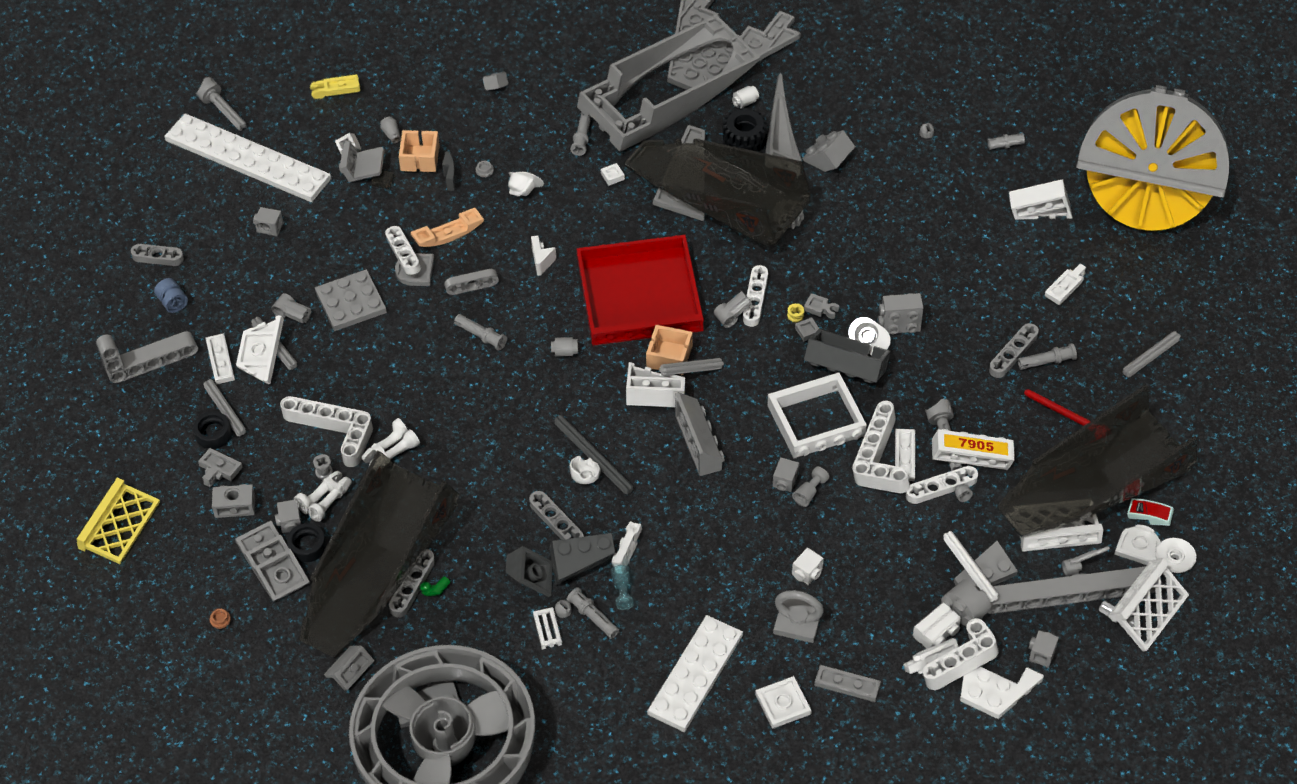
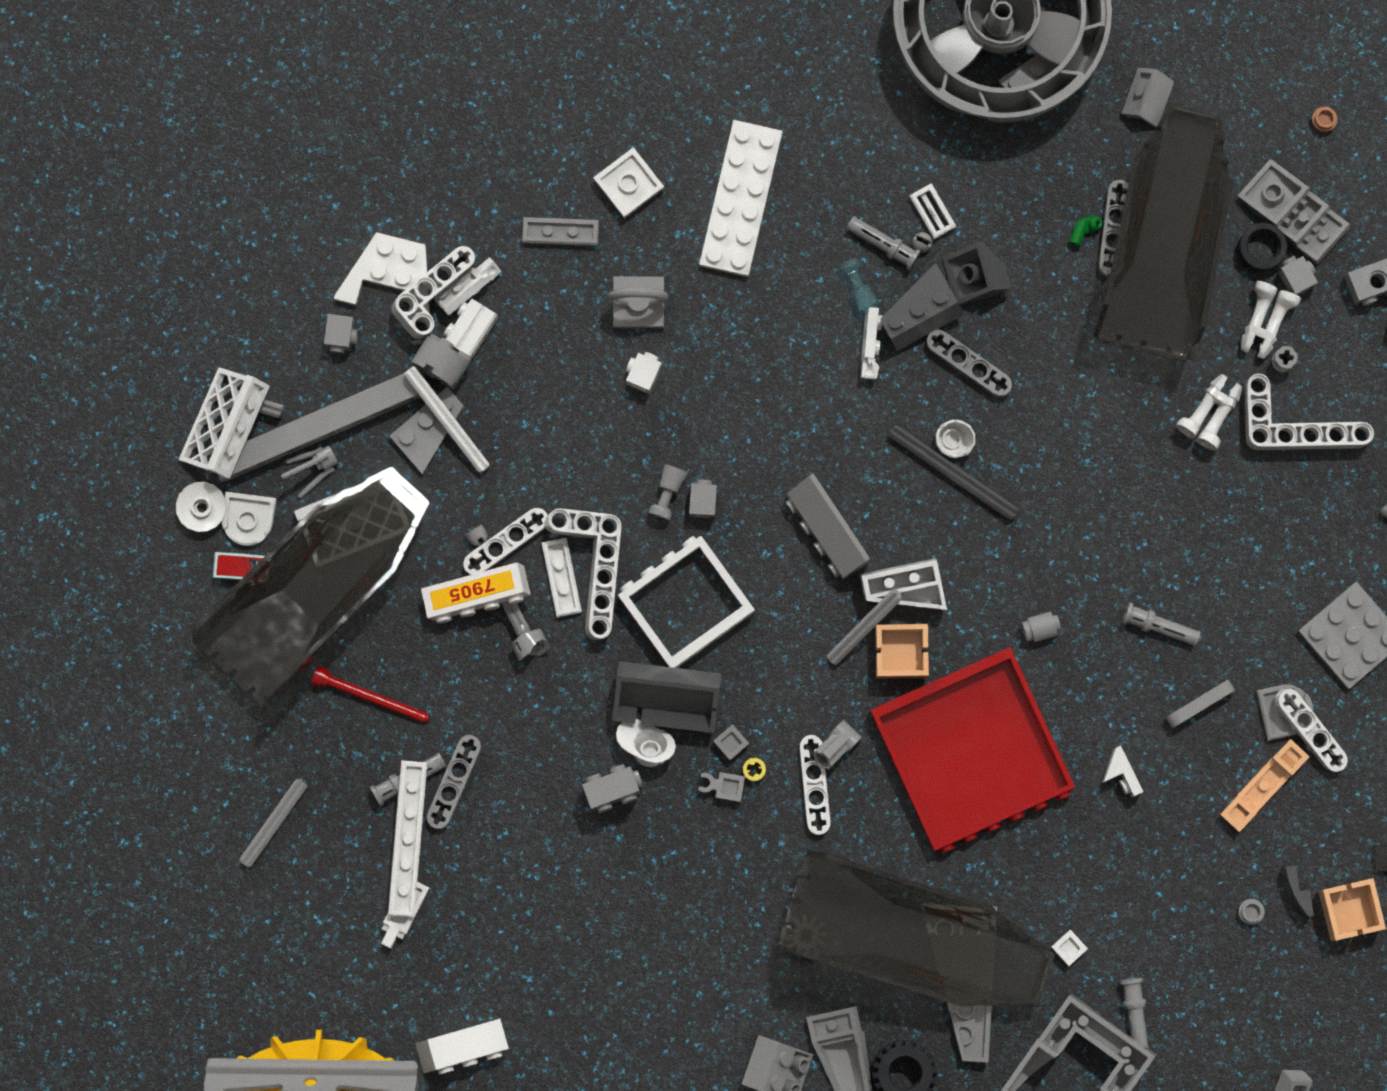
camera: 165 degrees right, 30 degrees up
(523, 183) = (1187, 890): white piece -> none
(1055, 318) = (407, 838): none -> white tile

